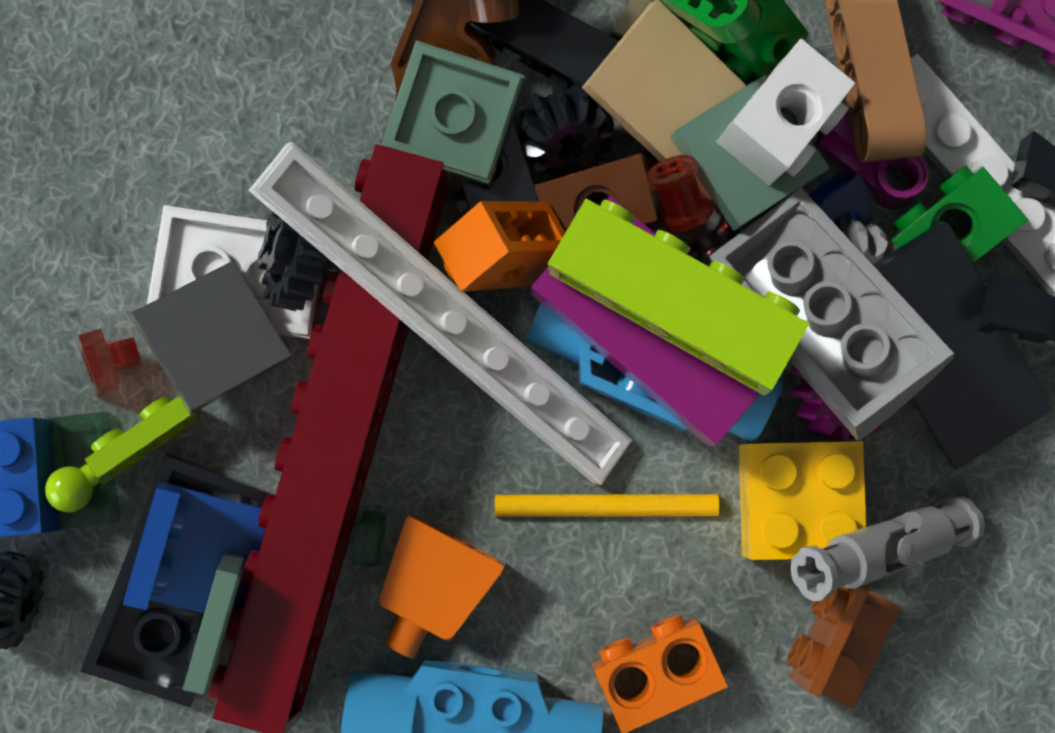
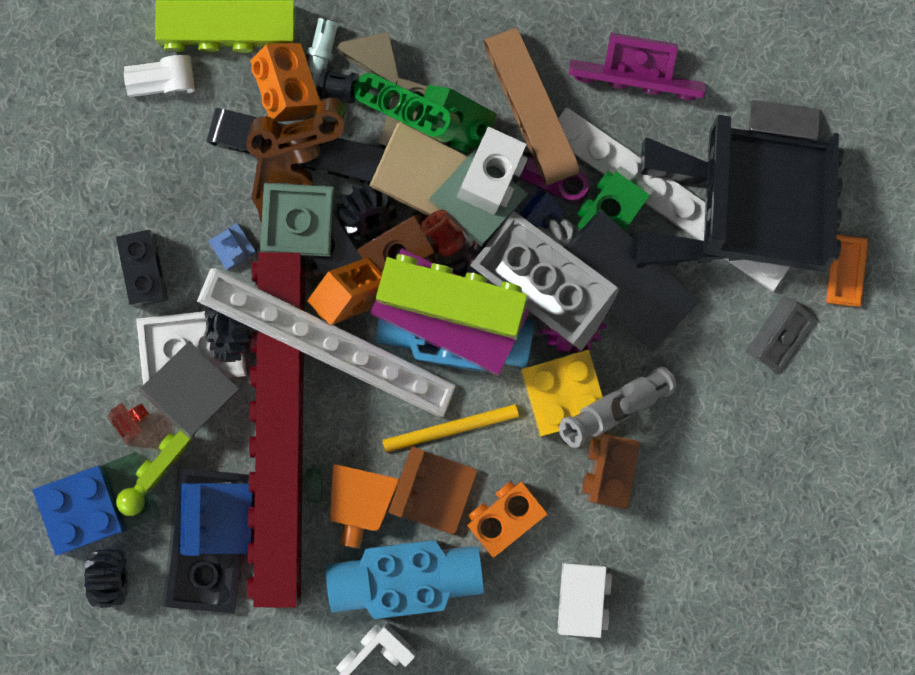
camera: 15 degrees left, 0 degrees up
(191, 128) = (142, 268): none -> black brick
(214, 623) = (240, 552): sand green tile -> none
(341, 132) = (232, 246): none -> medium blue tile
(553, 597) = (432, 490): none -> dark orange bracket

